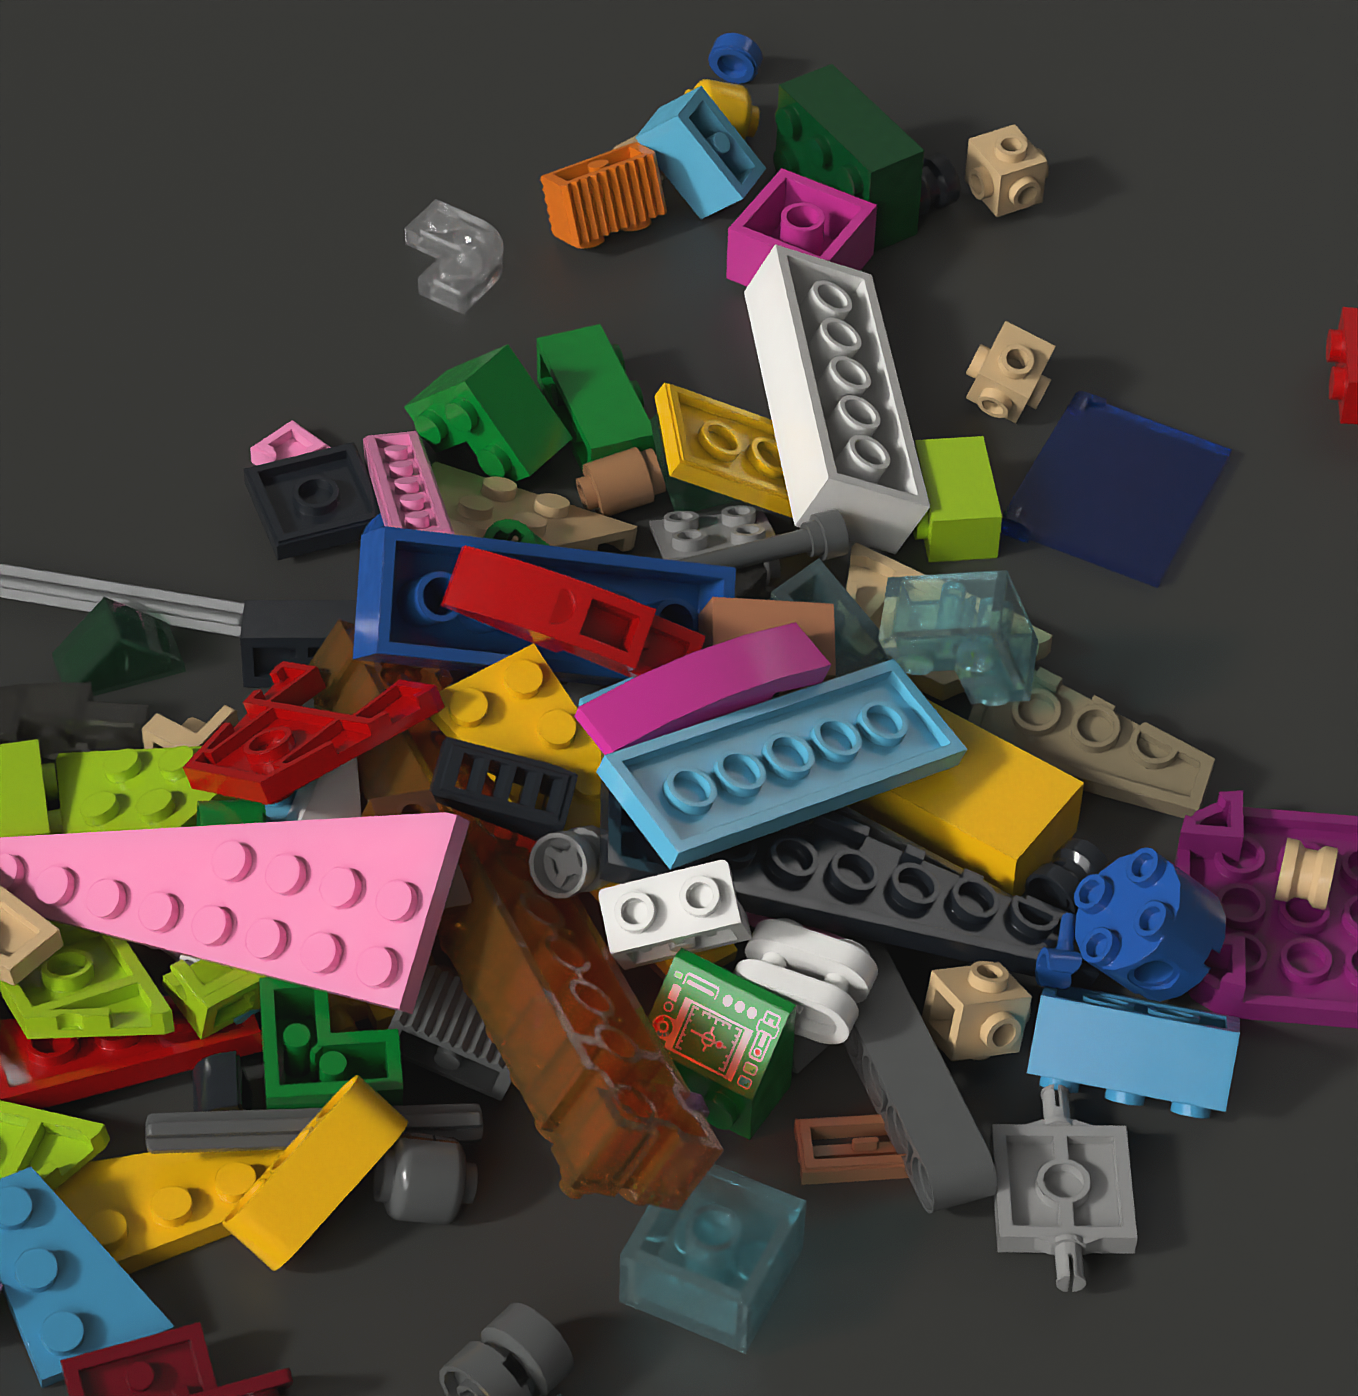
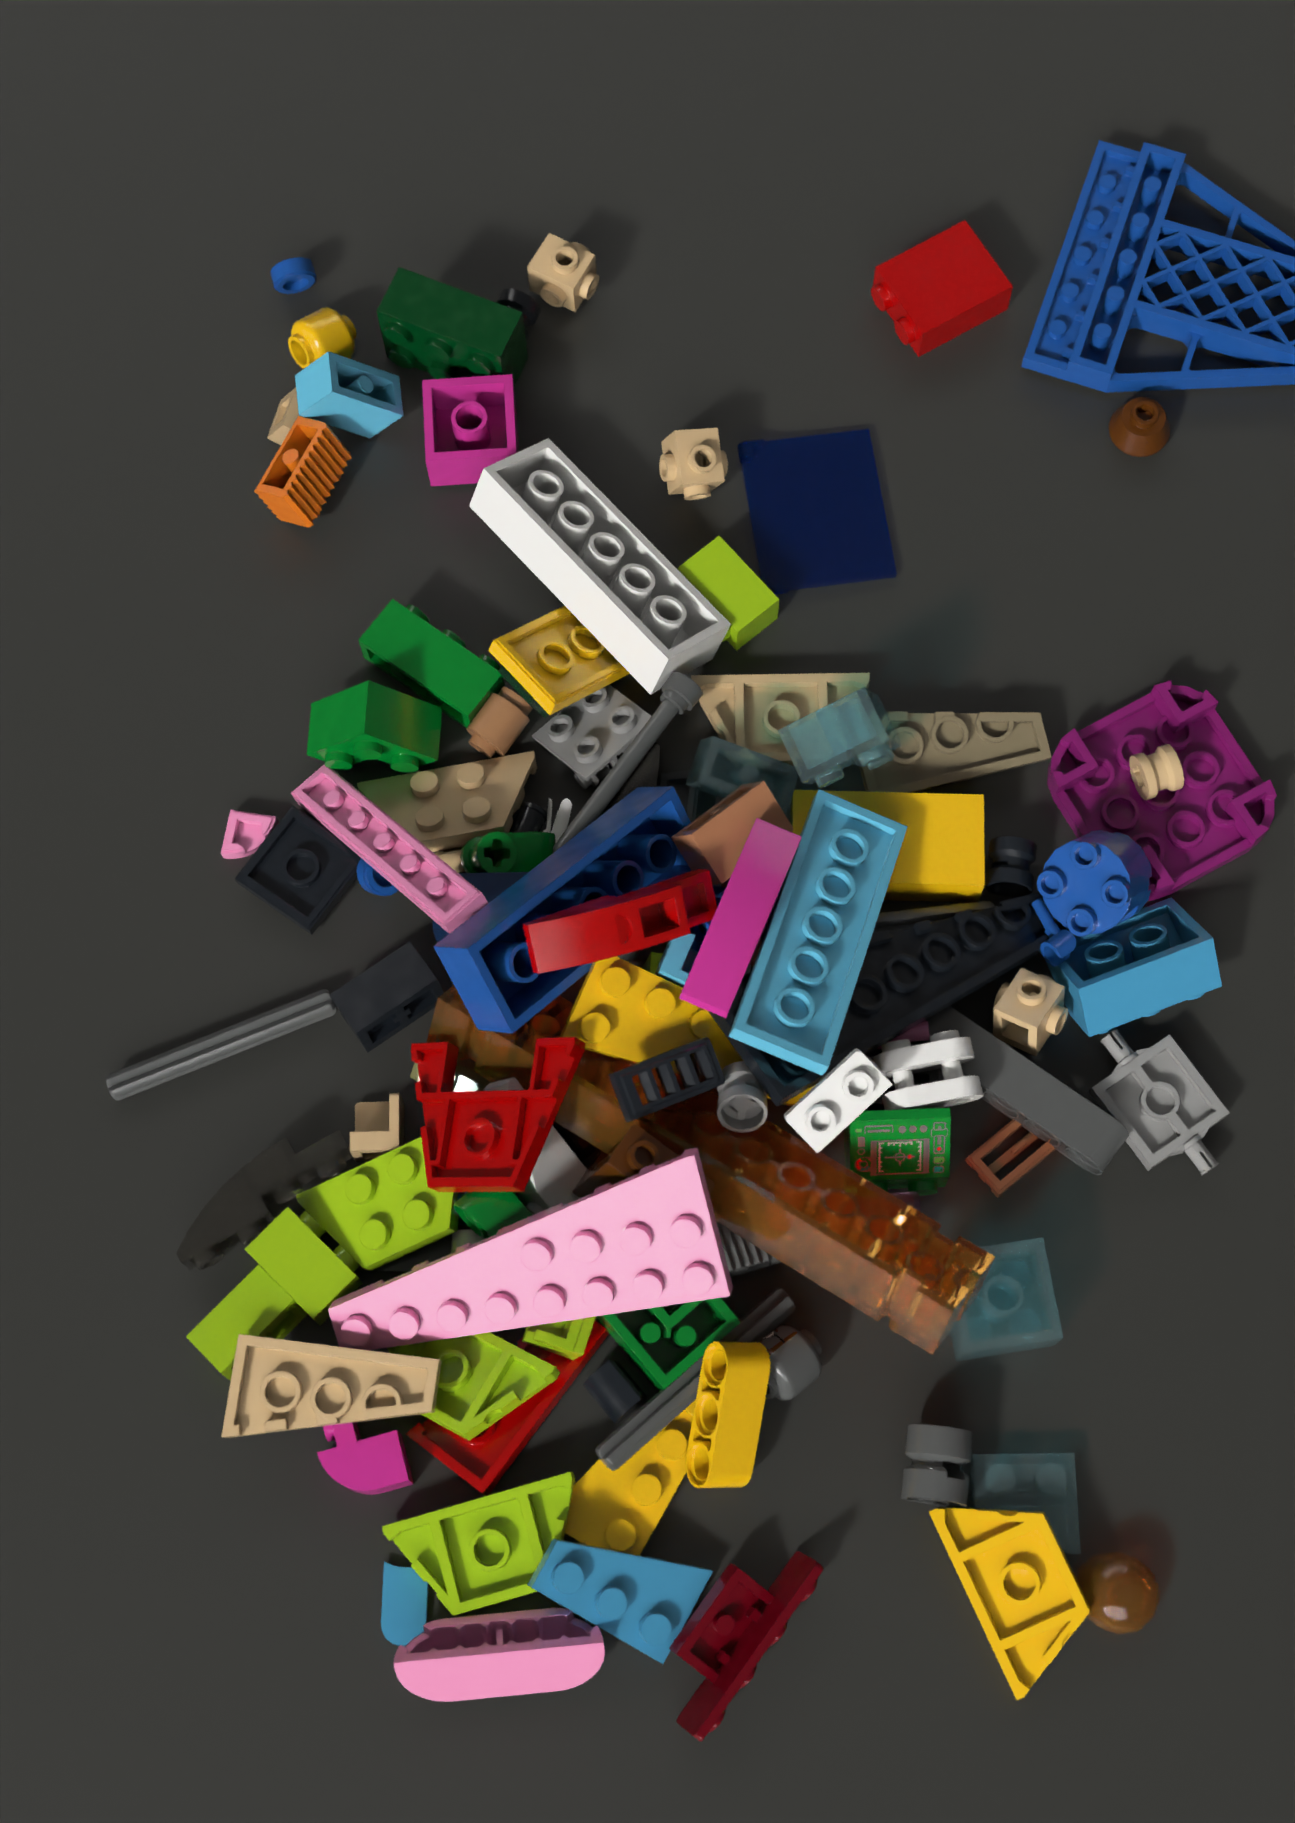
camera: 30 degrees left, 25 degrees up
(117, 649) = (266, 1087): clear green slope -> none
(466, 254) = (233, 572): clear plate -> none

